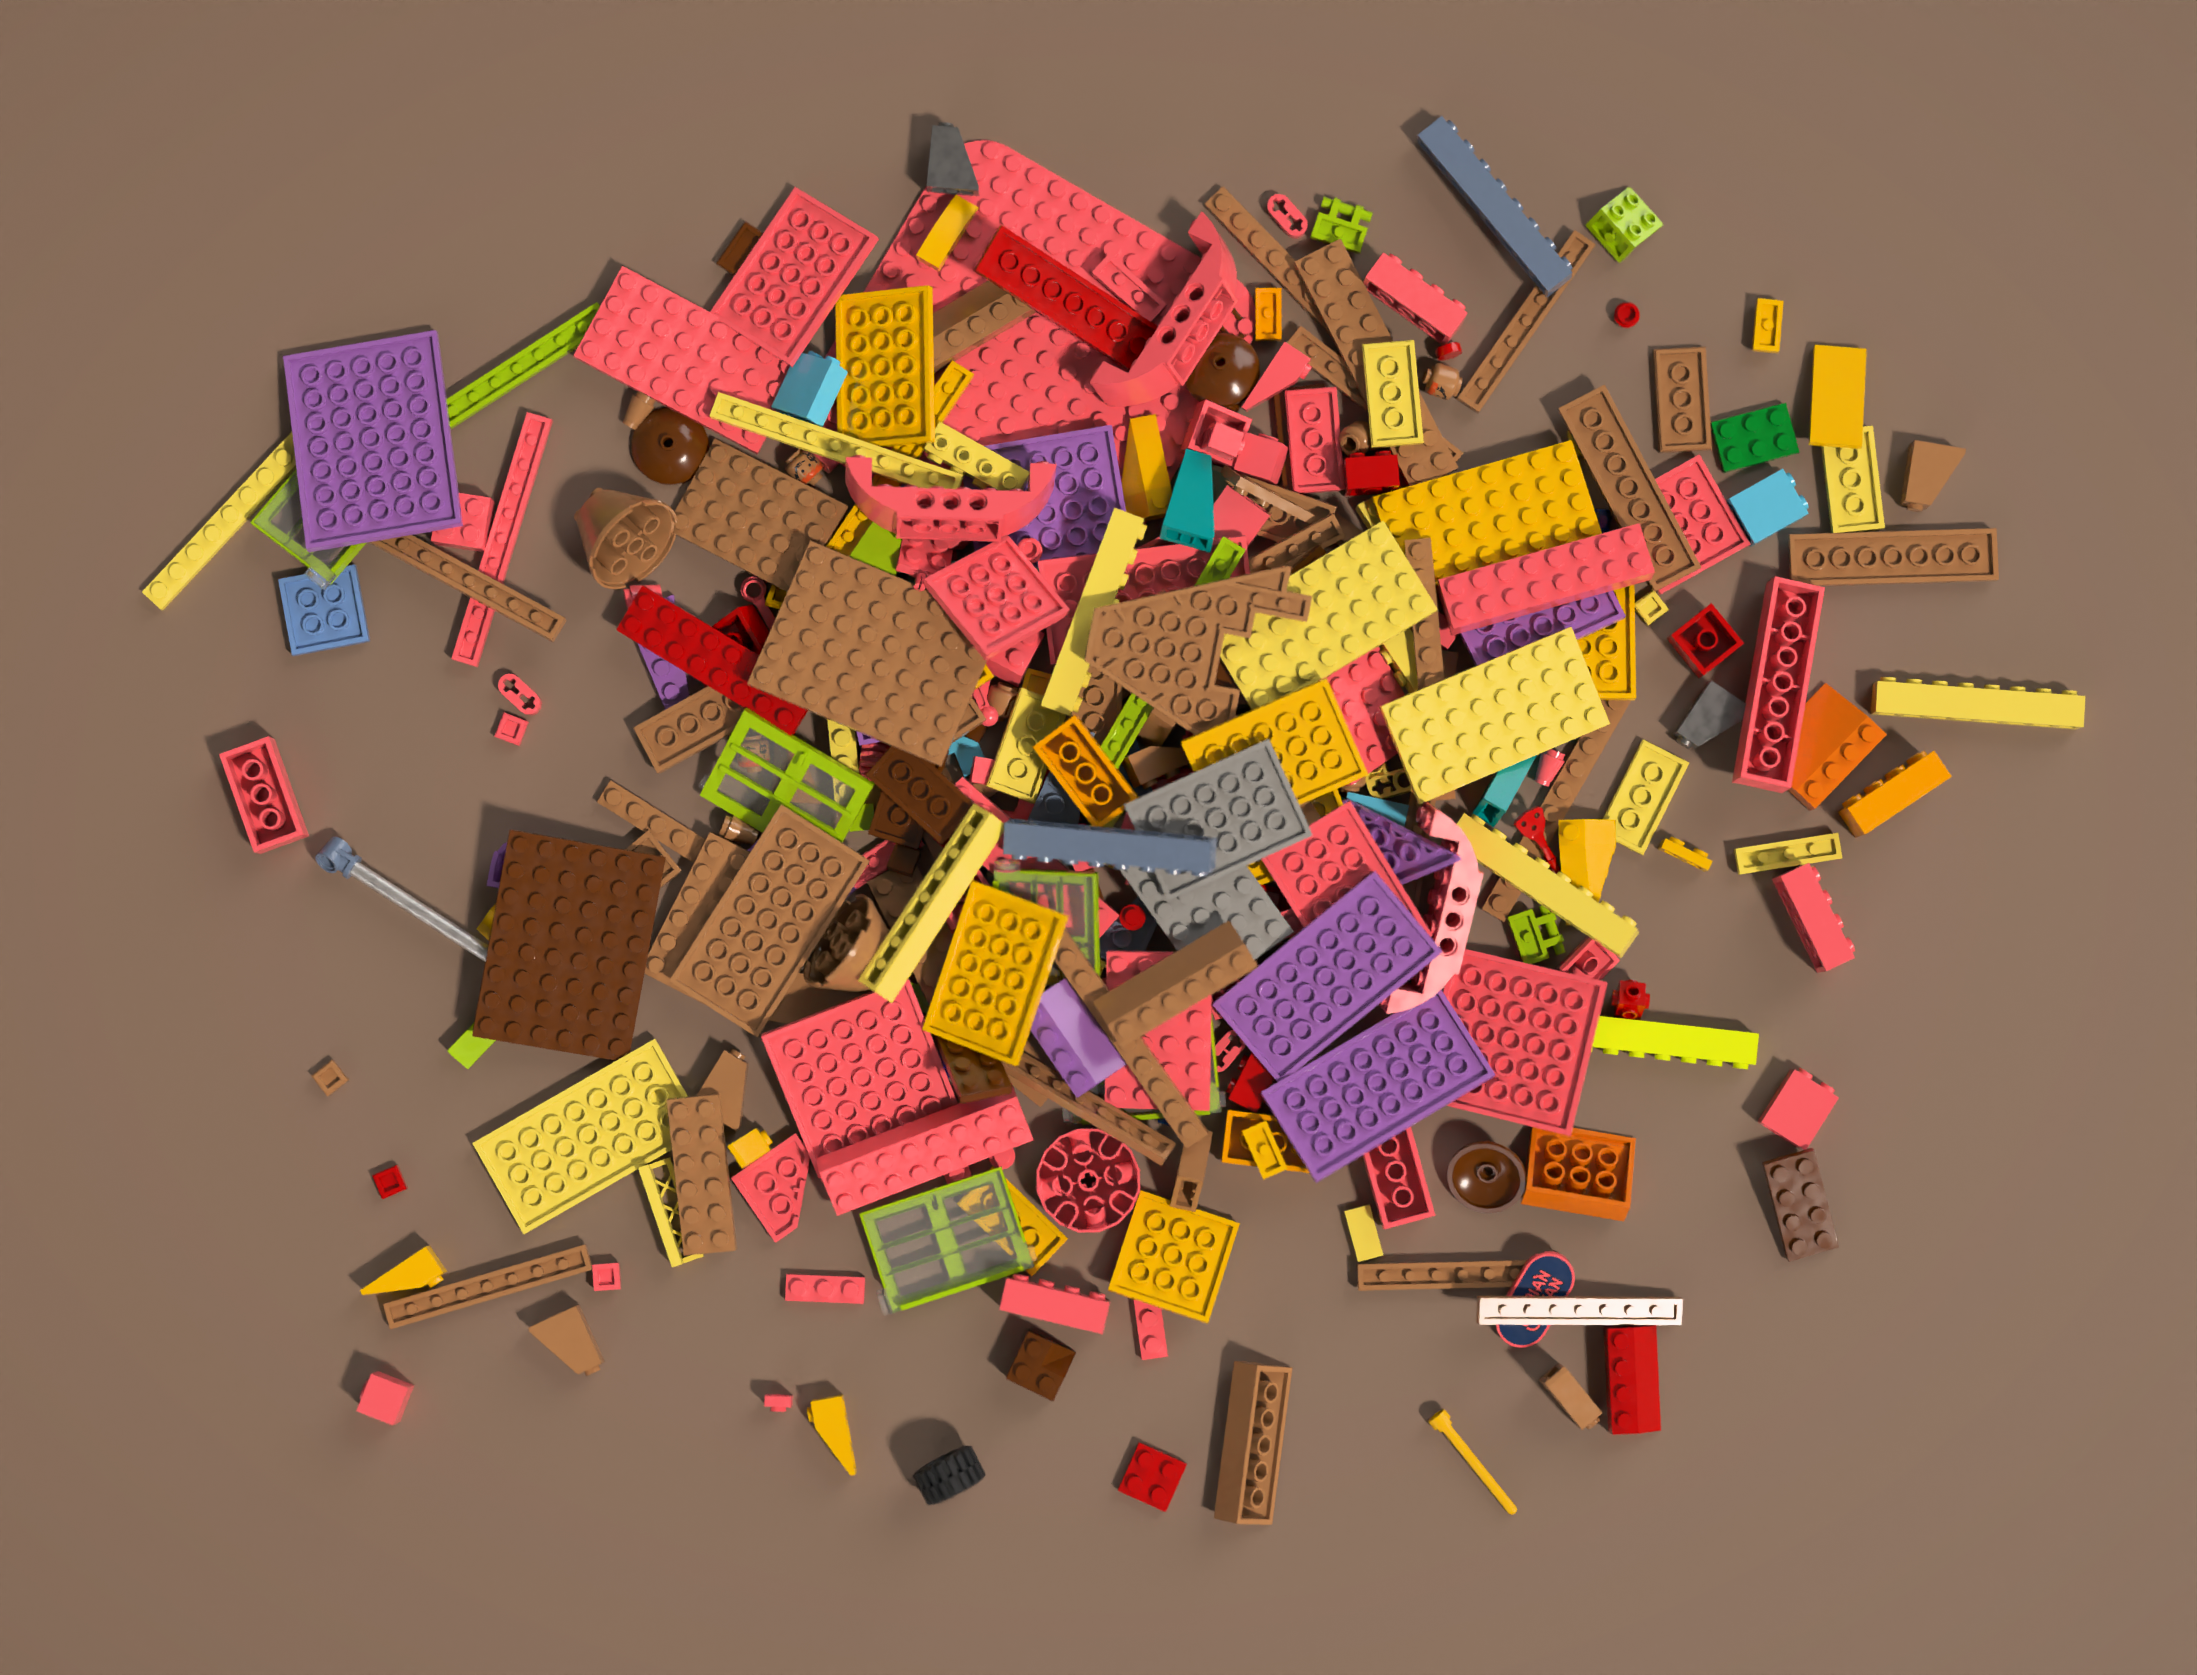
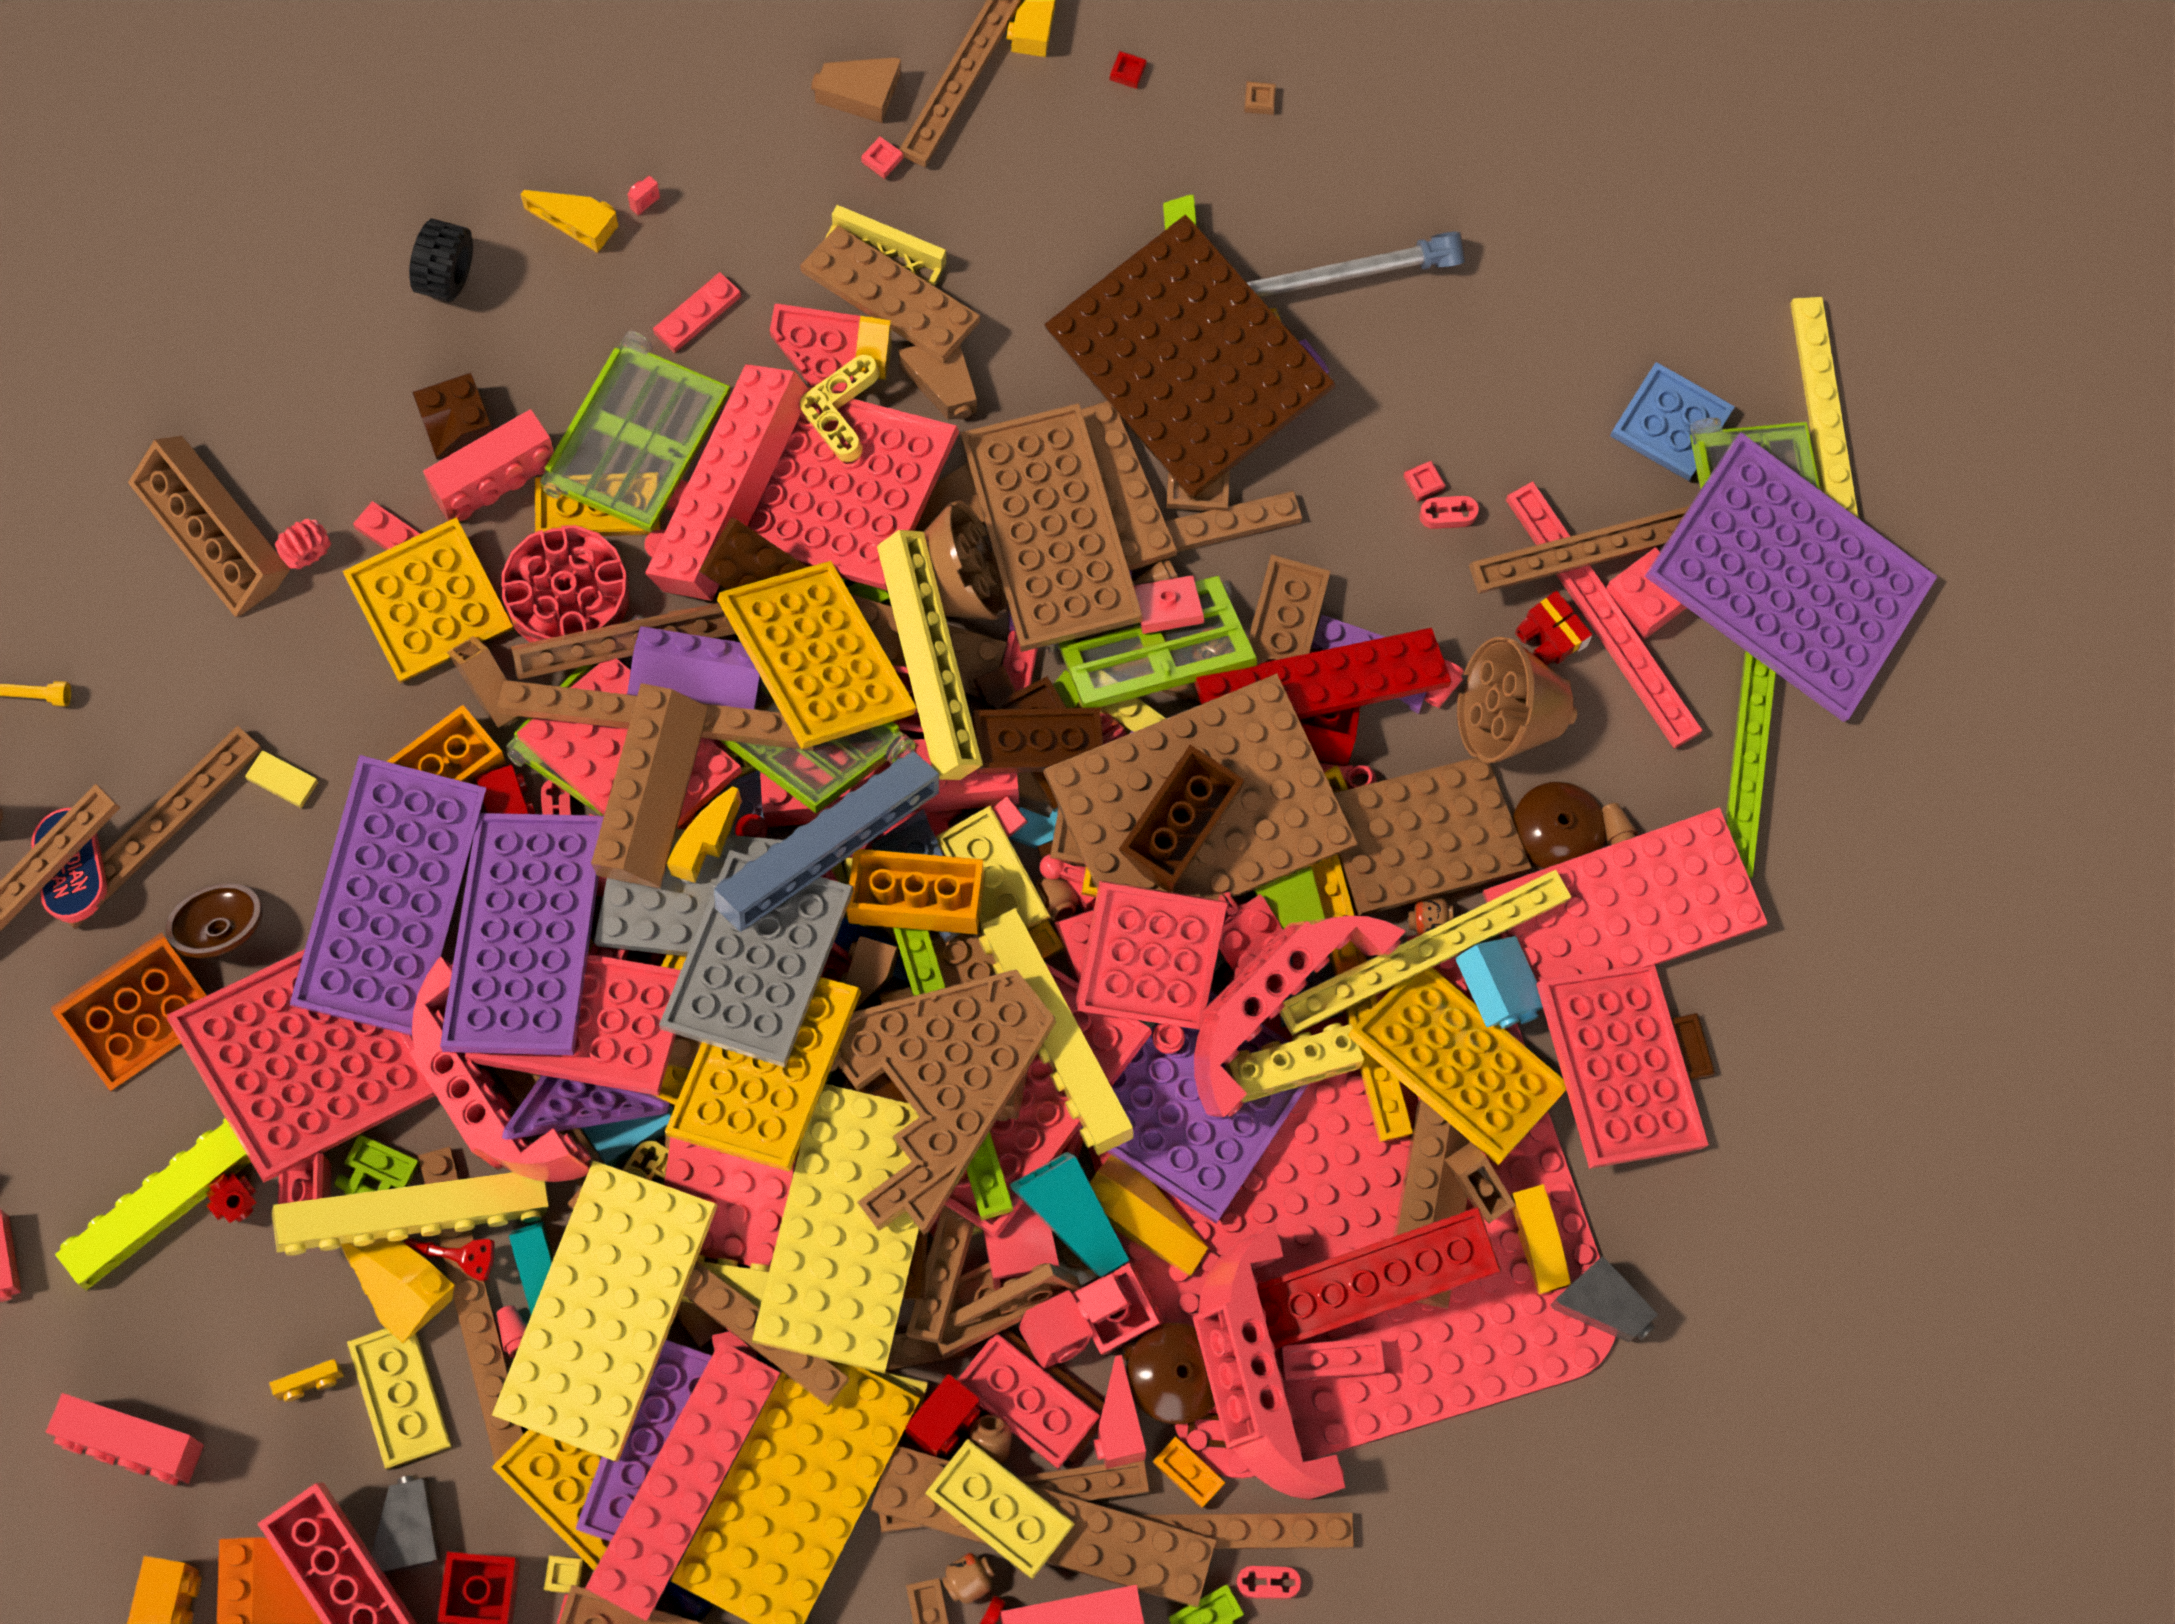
camera: 130 degrees right, 15 degrees down
(264, 795) = (1551, 238): coral brick -> none
(543, 570) = (1555, 629): none -> red hips
(583, 1137) = (1016, 238): light yellow plate -> none
(752, 802) = (1169, 604): none -> coral plate
(813, 1136) = (830, 402): none -> light yellow beam
(900, 647) = (1181, 818): none -> reddish brown slope
(949, 291) = (1480, 1182): none -> medium nougat brick
(1152, 1477) = (269, 424): red plate -> none
(1172, 925) = (705, 836): none -> yellow slope
(1211, 1369) = (302, 544): none -> coral gear
(1264, 1150) = (434, 744): yellow plate -> none
(1398, 1181) = (285, 840): coral brick -> none
(1788, 853) = (208, 1480): light yellow plate -> none

